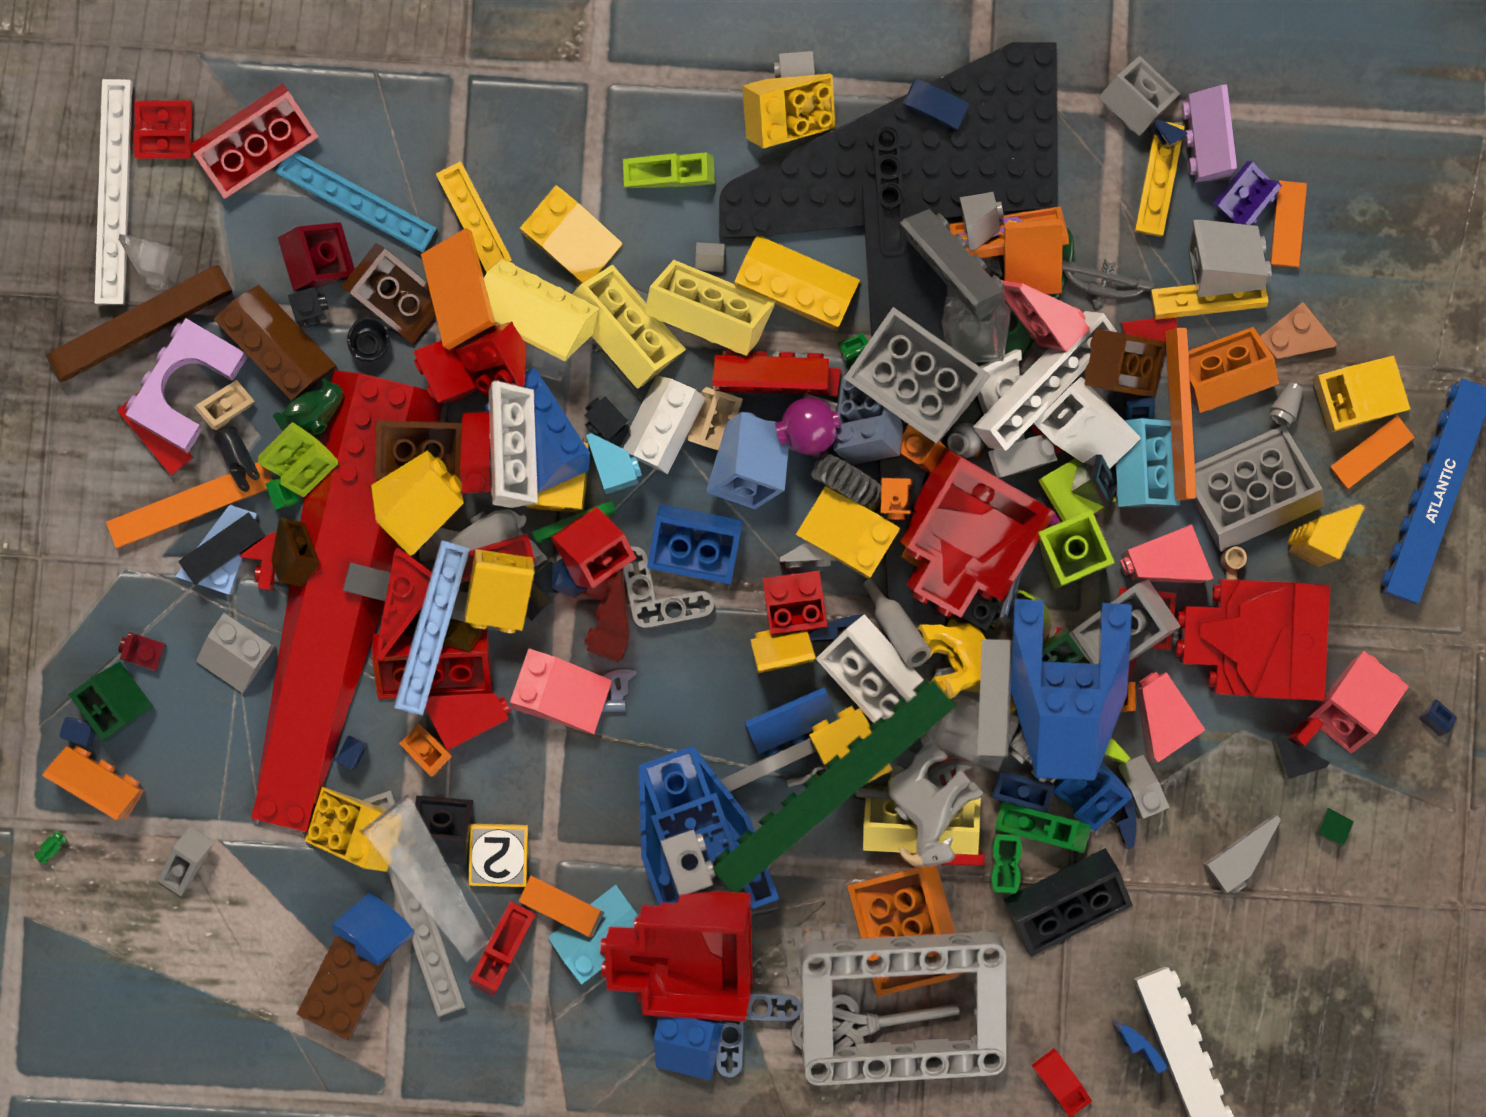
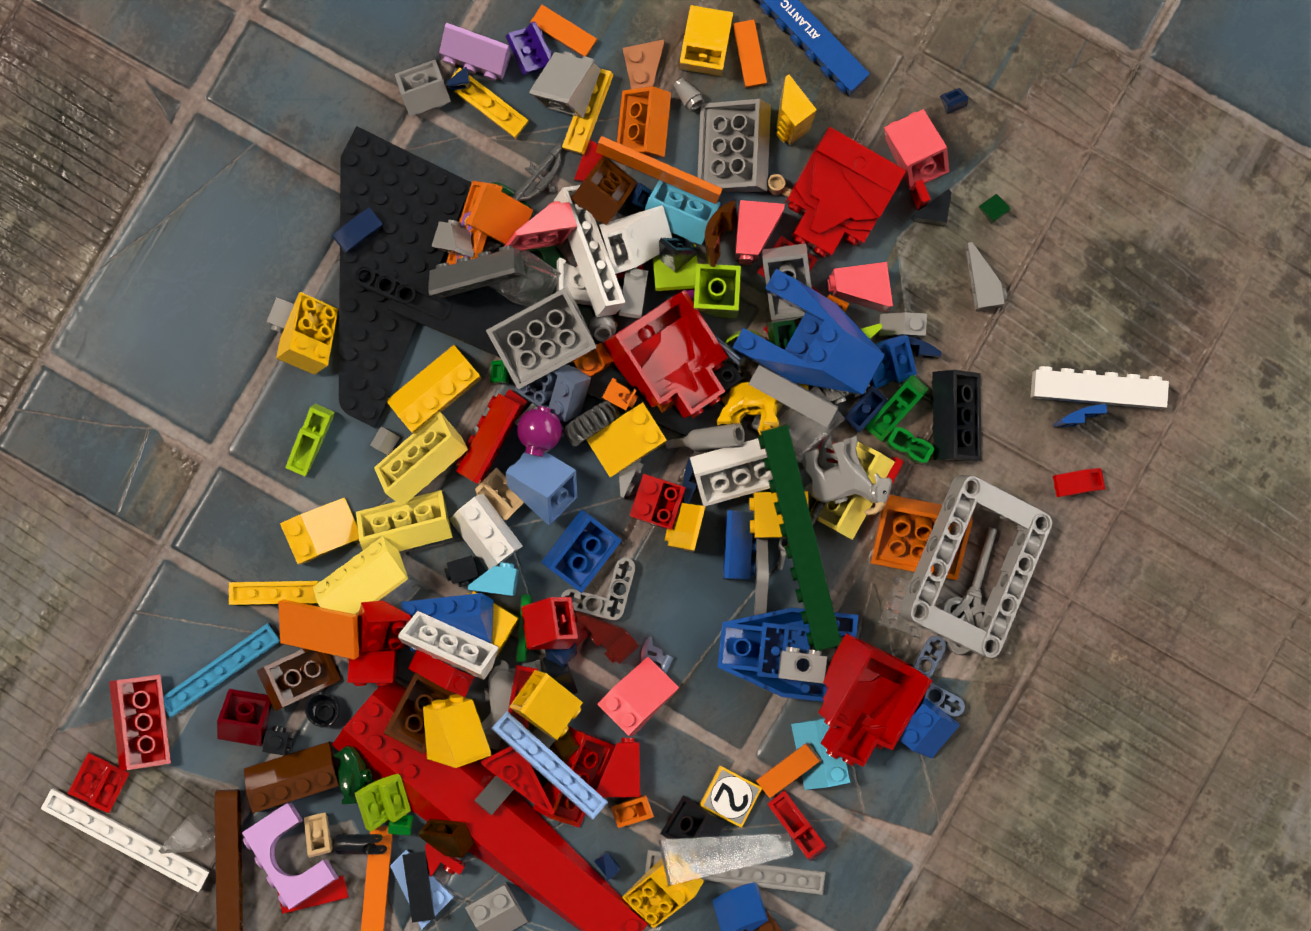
camera: 60 degrees left, 0 degrees up
(1159, 516) = (722, 220): none -> reddish brown slope

